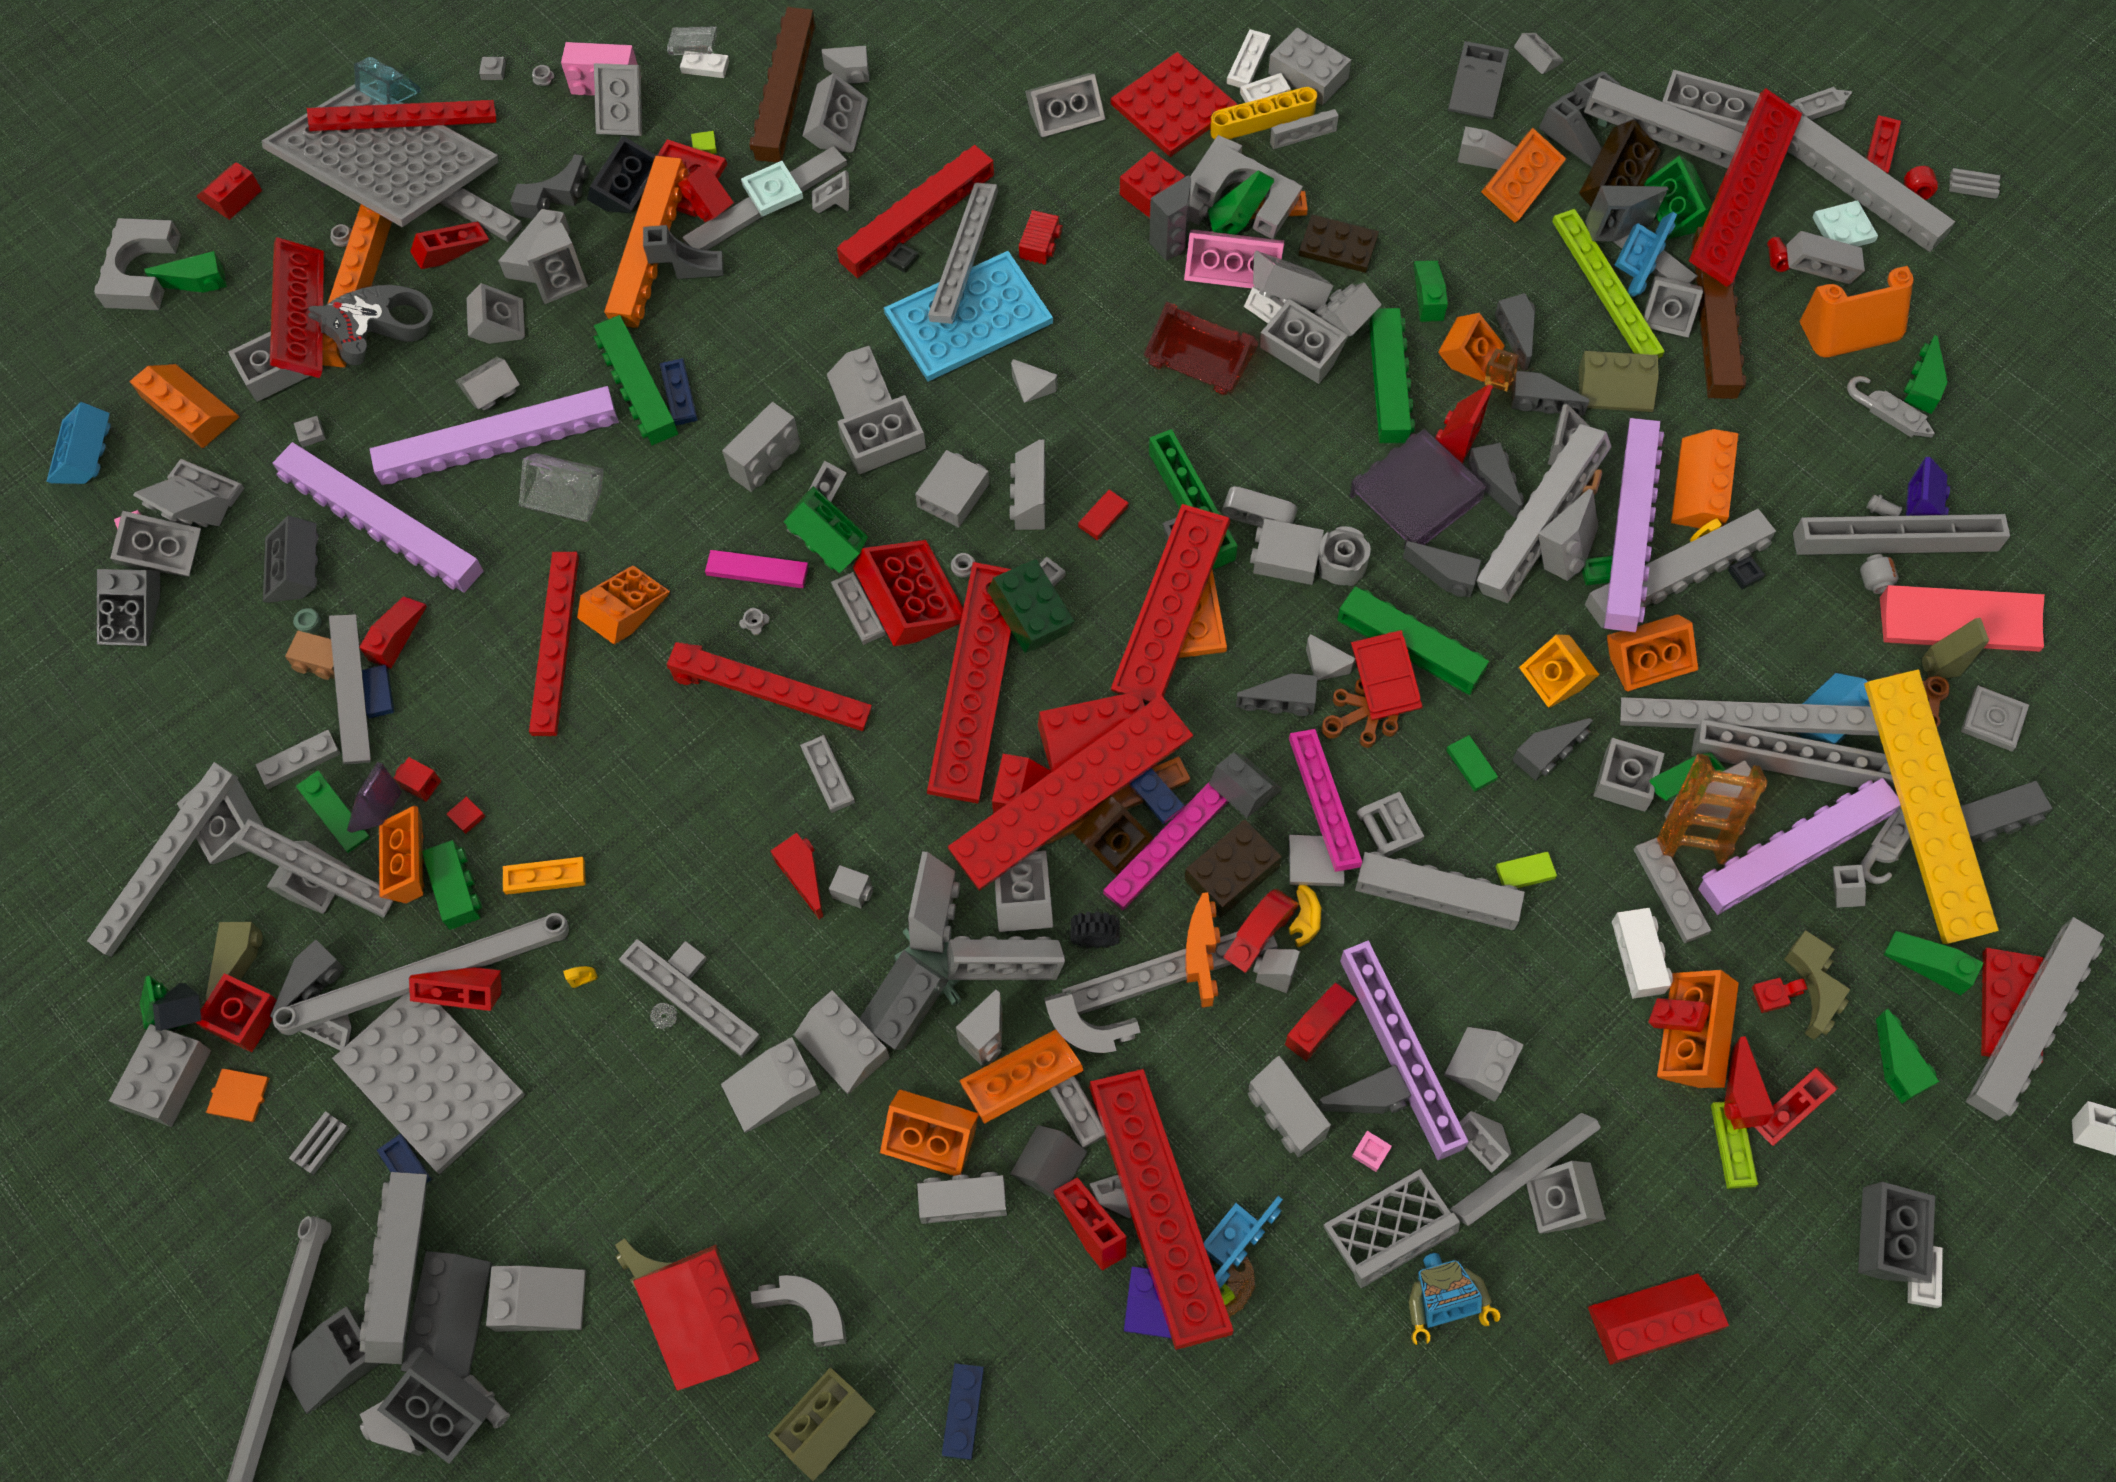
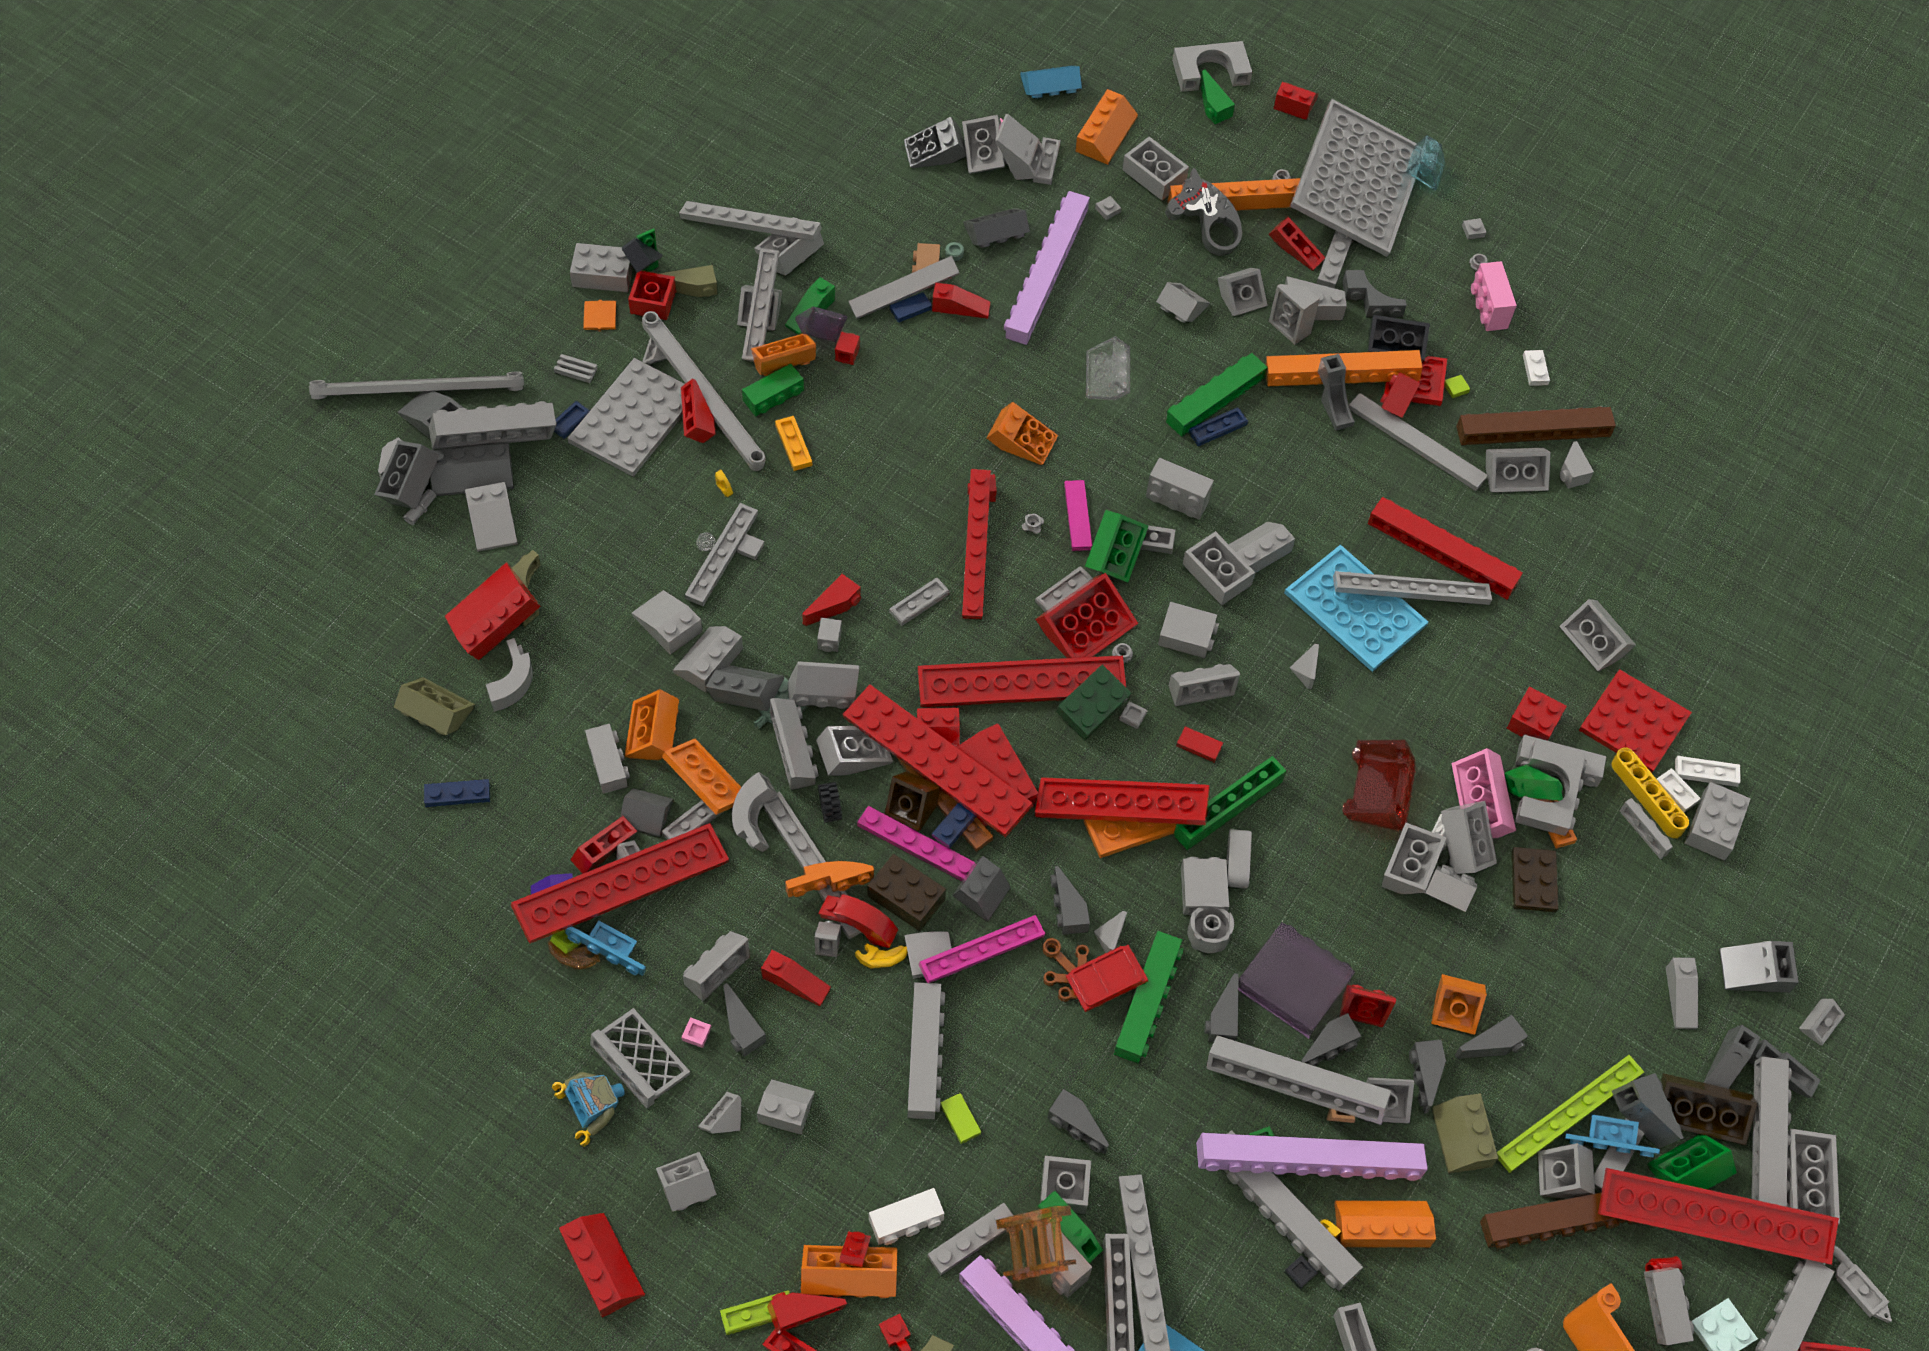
camera: 70 degrees right, 5 degrees down
(296, 286) = (1212, 162): red plate -> none
(298, 759) = (846, 276): light grey plate -> none
(308, 976) = (688, 327): dark grey slope -> none
(401, 115) = (1399, 181): red plate -> none
(466, 815) = (829, 385): red tile -> none
(493, 435) = (1139, 320): lavender brick -> none
(554, 644) = (978, 402): red plate -> none
(618, 99) = (1468, 313): light grey tile -> none
(692, 40) = (1553, 351): clear tile -> none
(772, 188) = (1425, 440): light aqua plate -> none
(832, 192) = (1438, 484): light grey slope -> none
(902, 257) = (1397, 549): pearl dark grey tile -> none
(982, 1030) = (734, 742): light grey slope -> none
(1039, 237) = (1451, 642): red brick -> none
(1170, 219) = (1499, 732): dark grey slope -> none
(1389, 376) = (1406, 939): green brick -> none
(1397, 820) = (980, 1010): light grey plate -> none
(1403, 1050) = (780, 1039): lavender brick -> none
(1430, 291) = (1510, 960): green slope -> none
(1472, 763) = (1048, 1062): green tile -> none
(1501, 369) = (1440, 1027): clear orange brick -> none
(1523, 175) = (1665, 1021): orange plate -> none
(1525, 1168) = (704, 1148): light grey tile -> none
(1558, 670) = (1153, 1119): light orange slope -> none
(1569, 537) = (1284, 1108): light grey slope -> none
(1653, 652) = (1192, 1196): orange slope -> none

